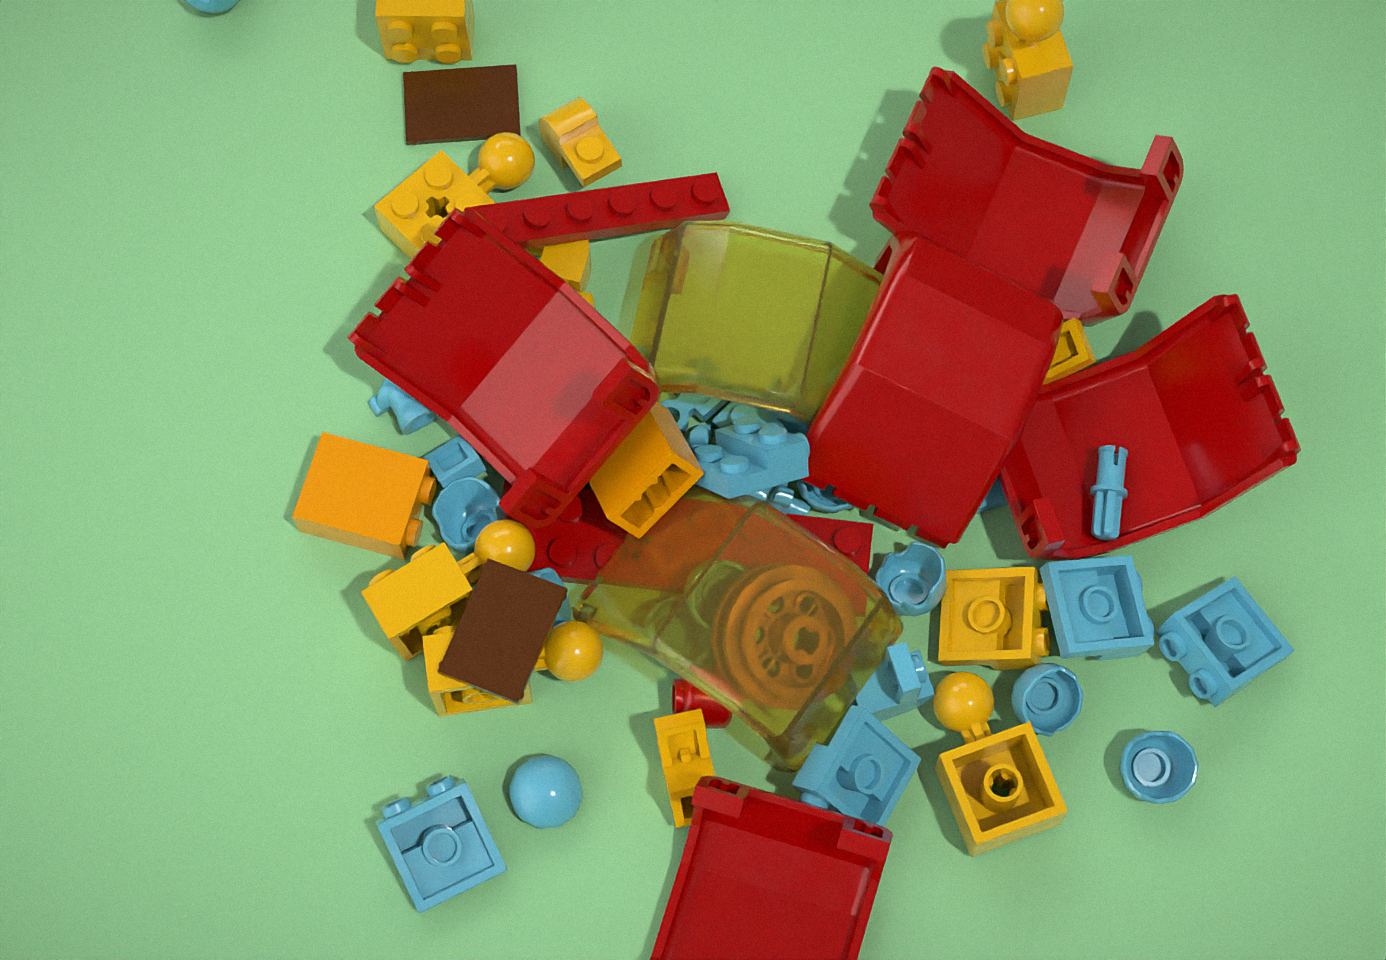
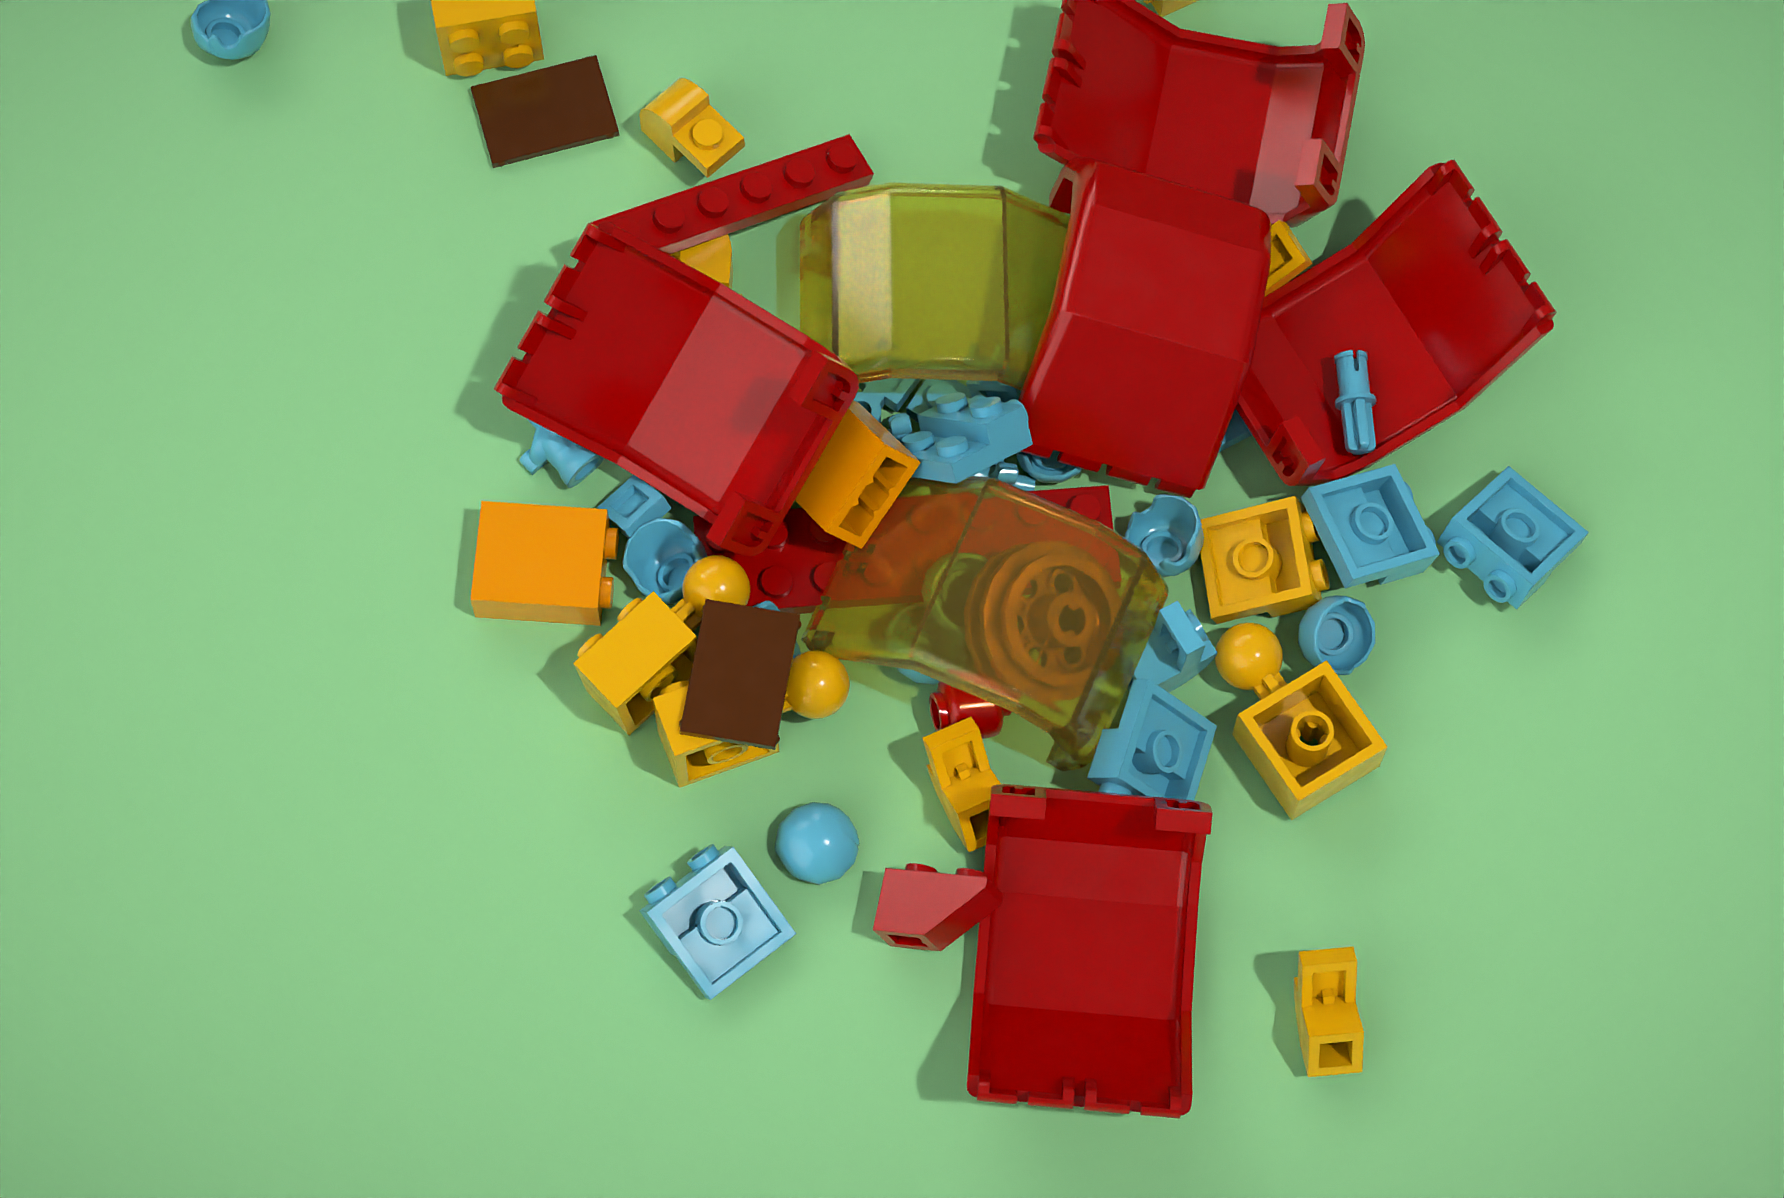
camera: 15 degrees left, 0 degrees up
(430, 193) = (550, 214): yellow brick -> none
(630, 873) = (930, 907): none -> slope
(1158, 766) = (1471, 683): medium azure hair -> none

